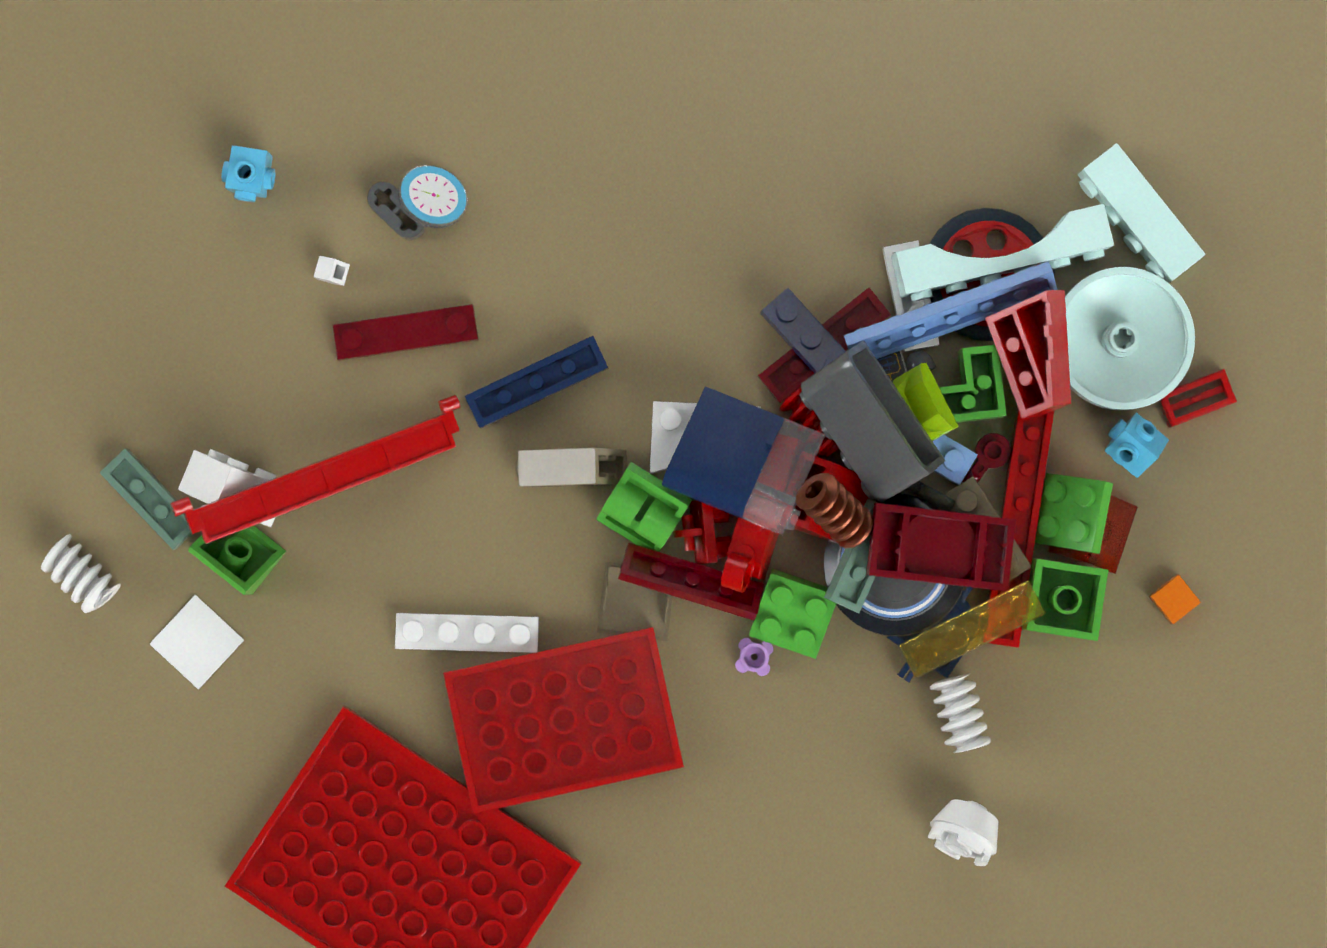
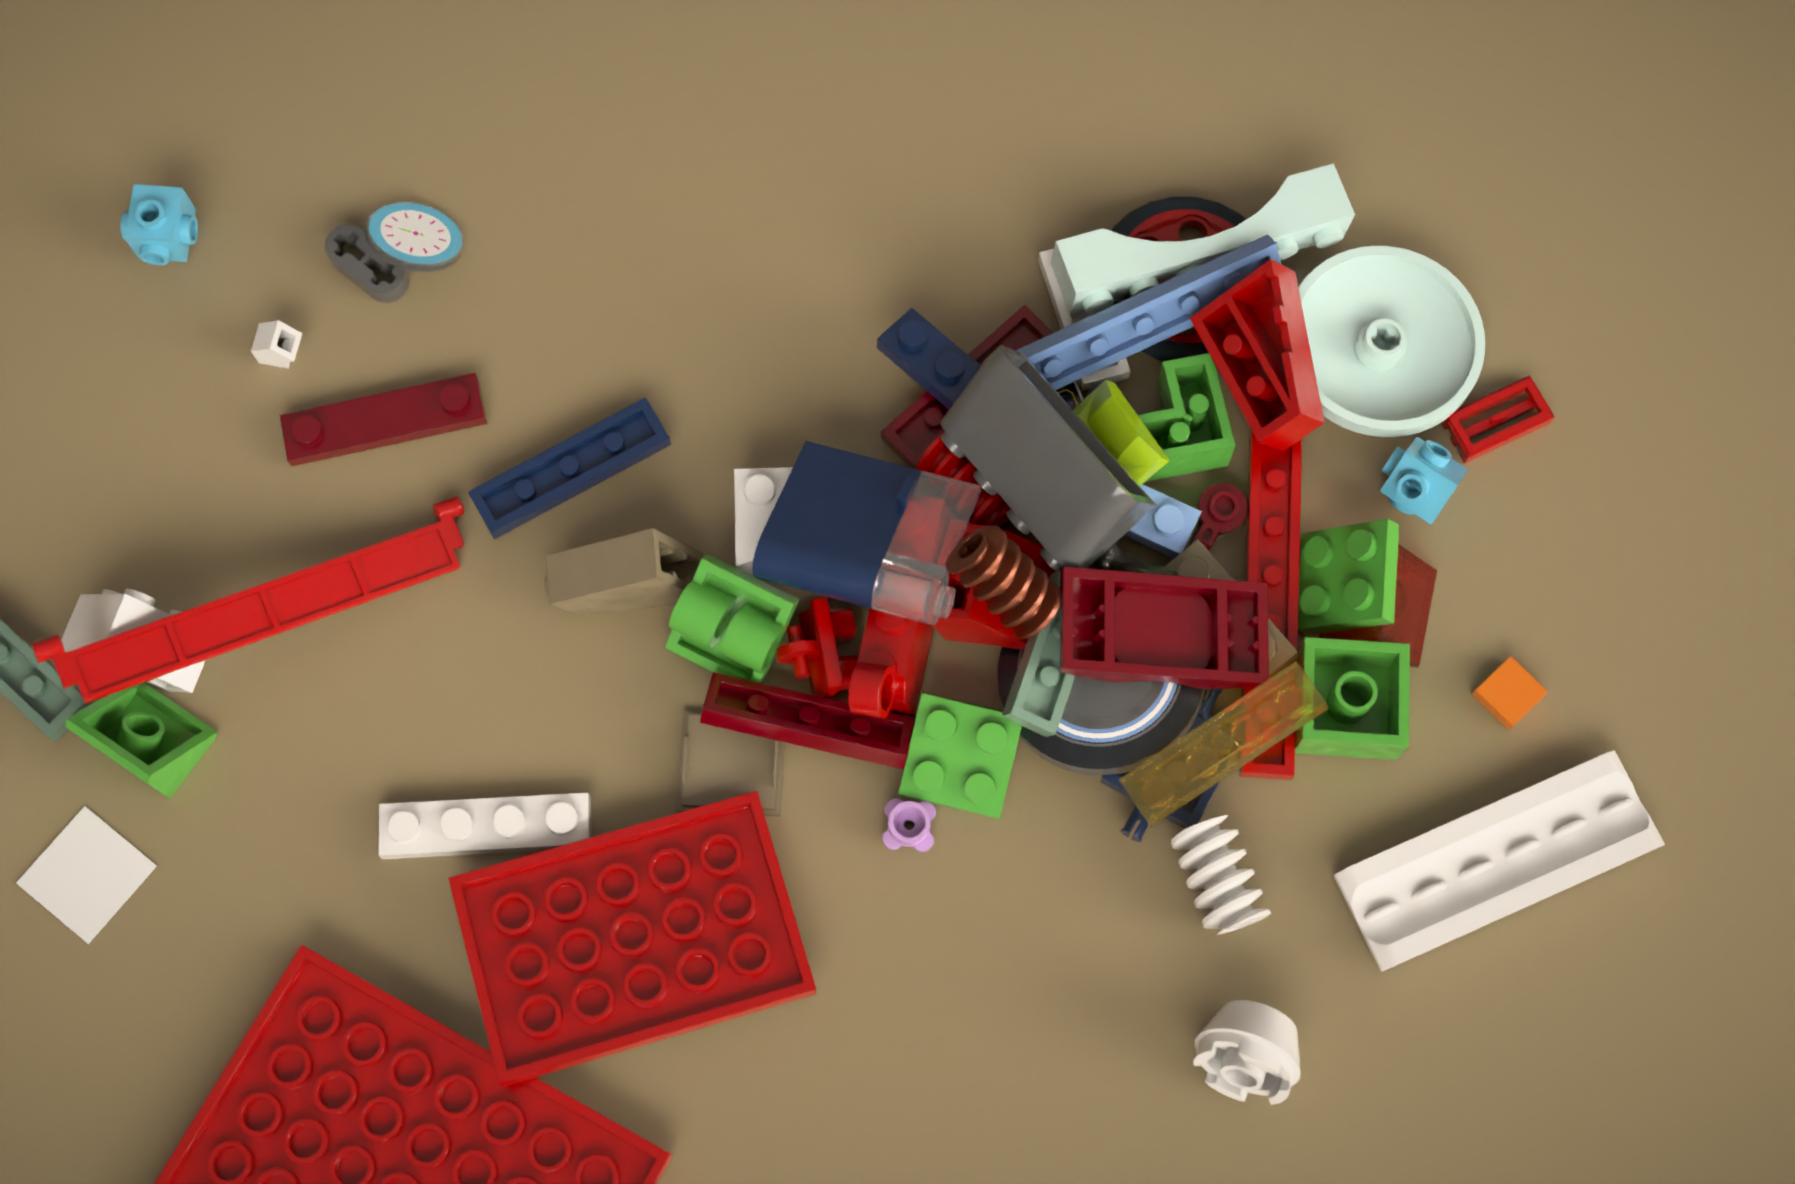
camera: 10 degrees left, 15 degrees down
(1140, 214) = (1385, 183): light aqua brick -> none
(1150, 715) = (1497, 860): none -> white plate

